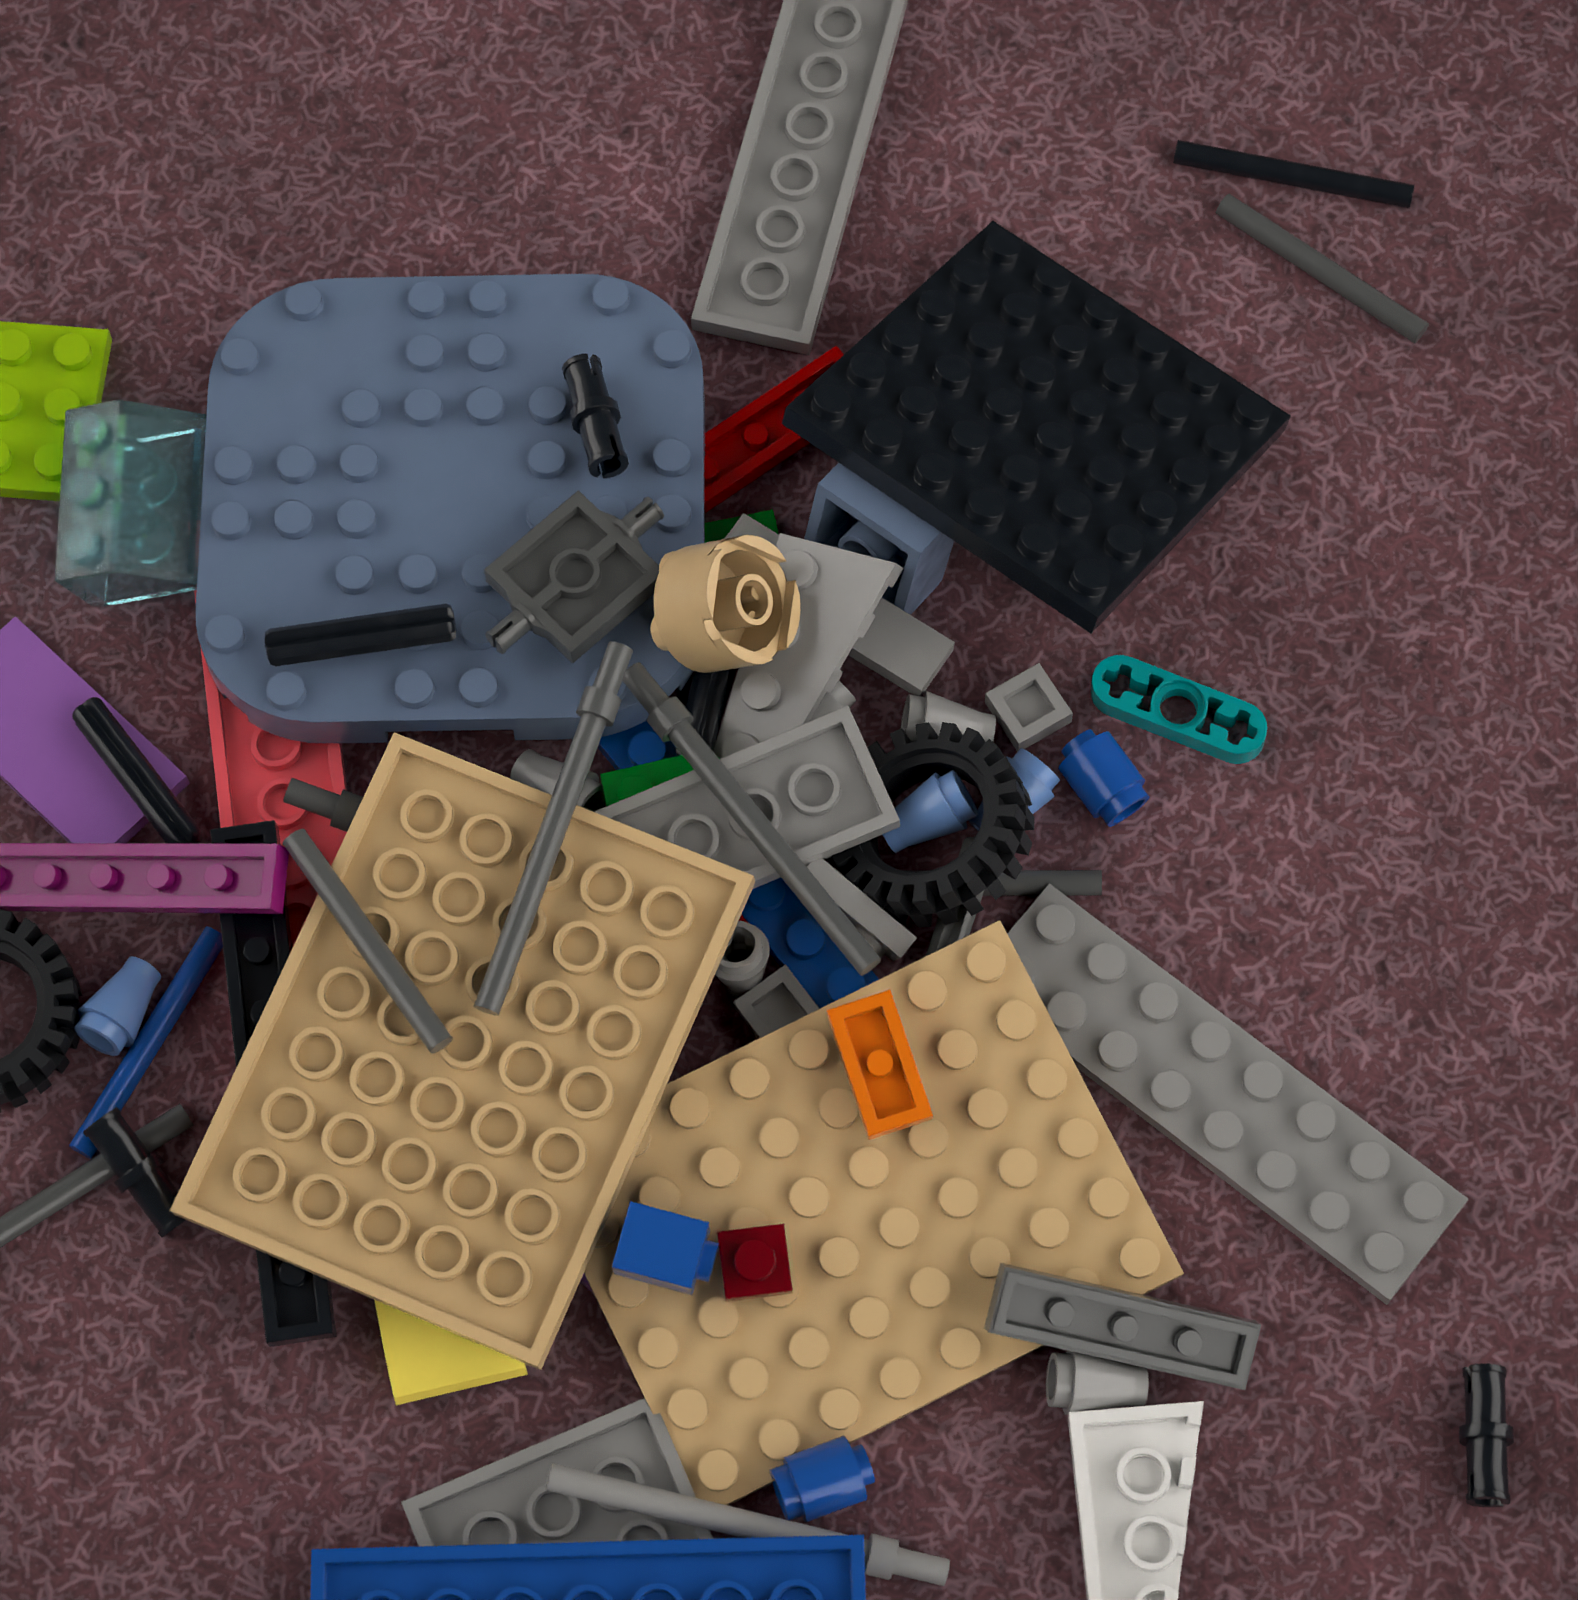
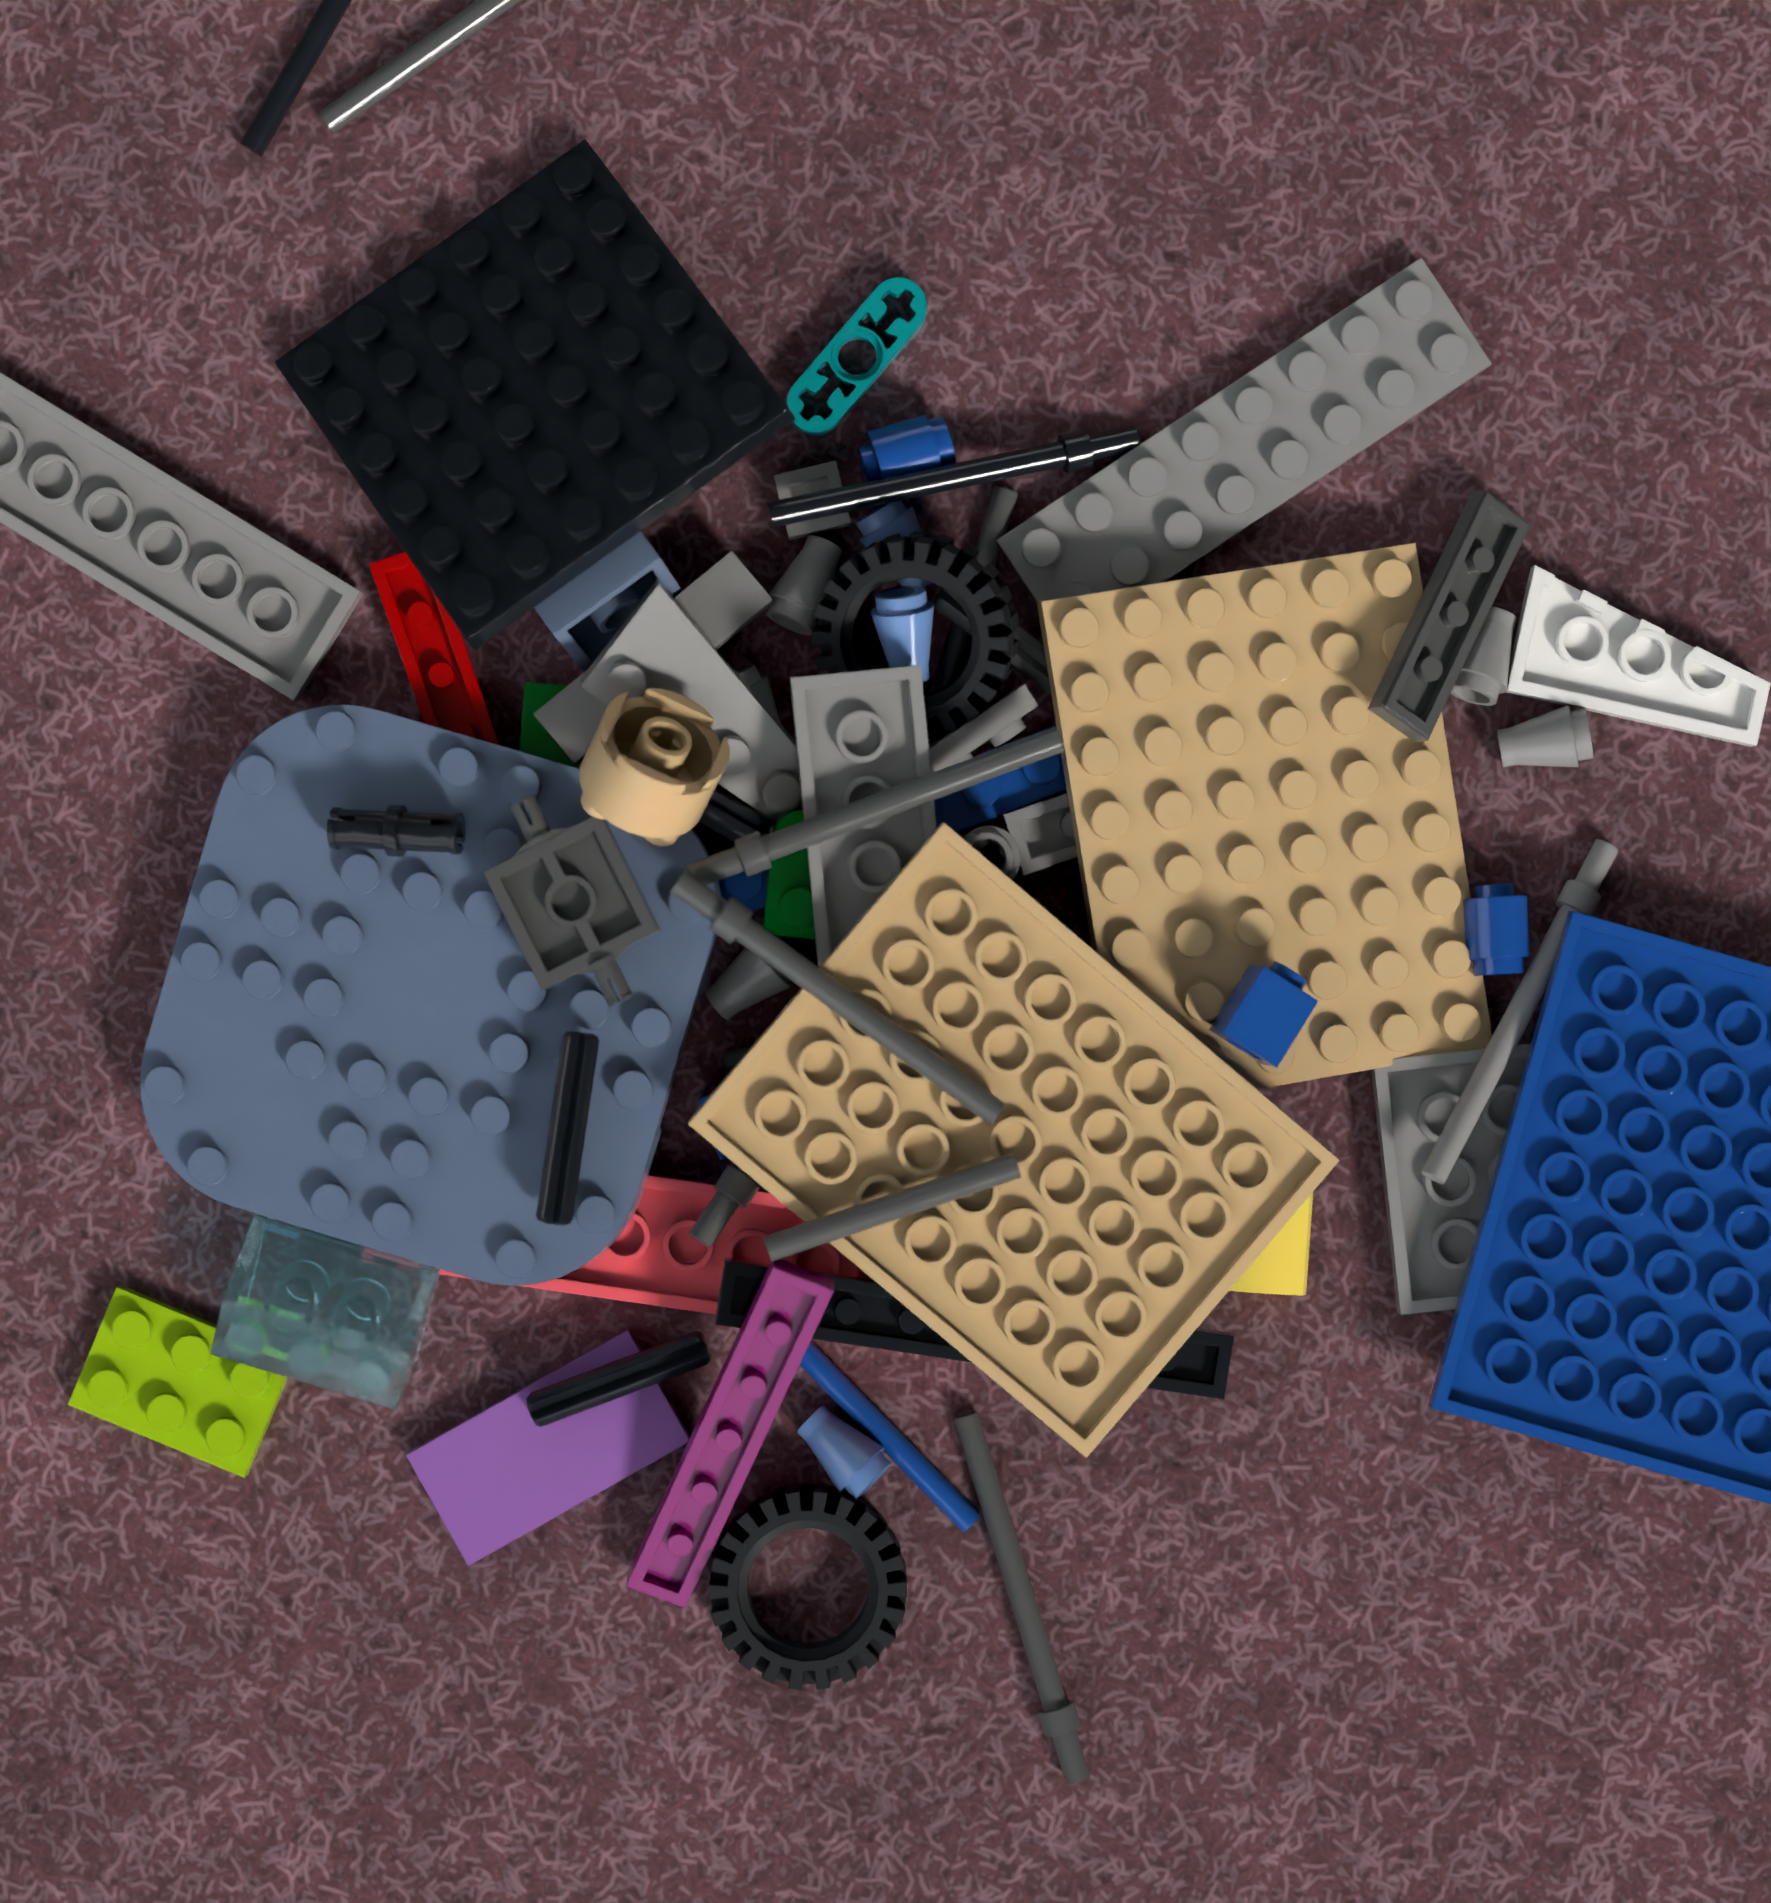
camera: 75 degrees left, 20 degrees up
(136, 1169) = (1015, 1475): black pin -> none
(754, 1262) = (1295, 932): dark red plate -> none
(879, 1064) = (1155, 760): orange plate -> none
(1033, 1475) = (1548, 740): none -> light grey cone
(1158, 927) = (1071, 452): none -> black bar
(1486, 1435) = (1640, 322): black pin -> none

